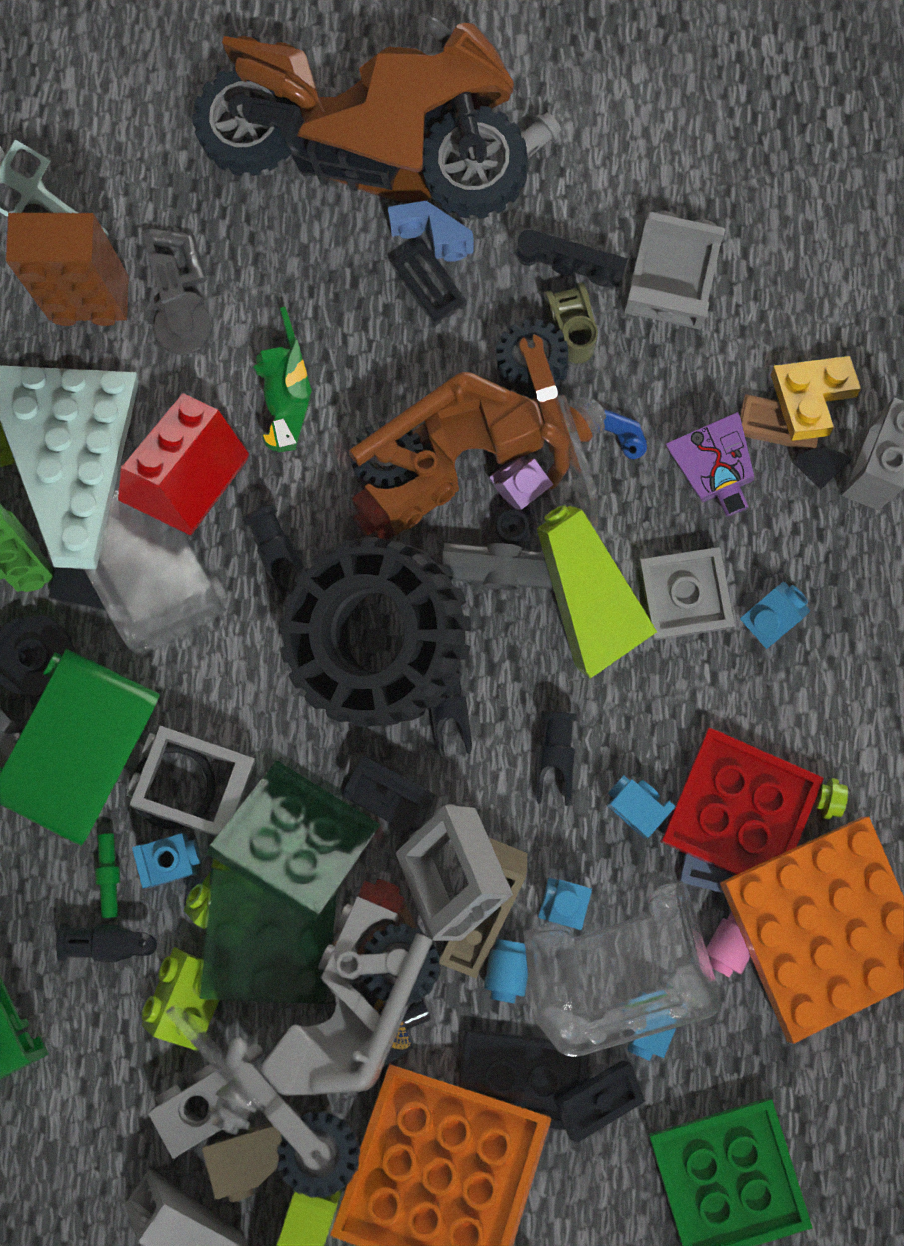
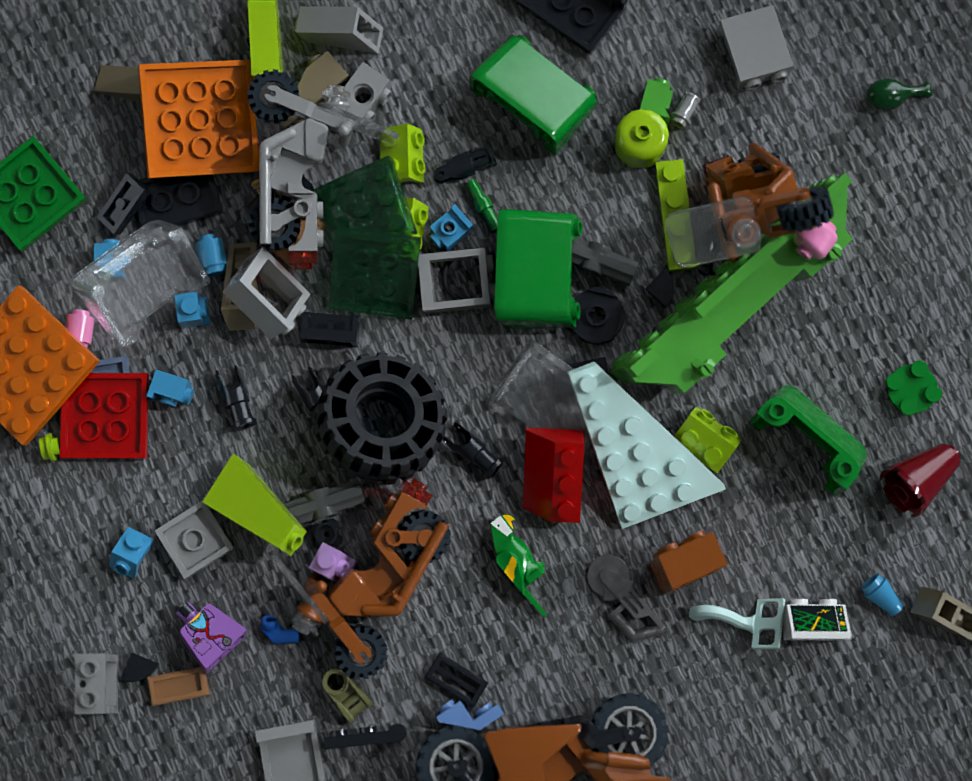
camera: 155 degrees right, 0 degrees up
(807, 387) = (170, 713): yellow plate -> none

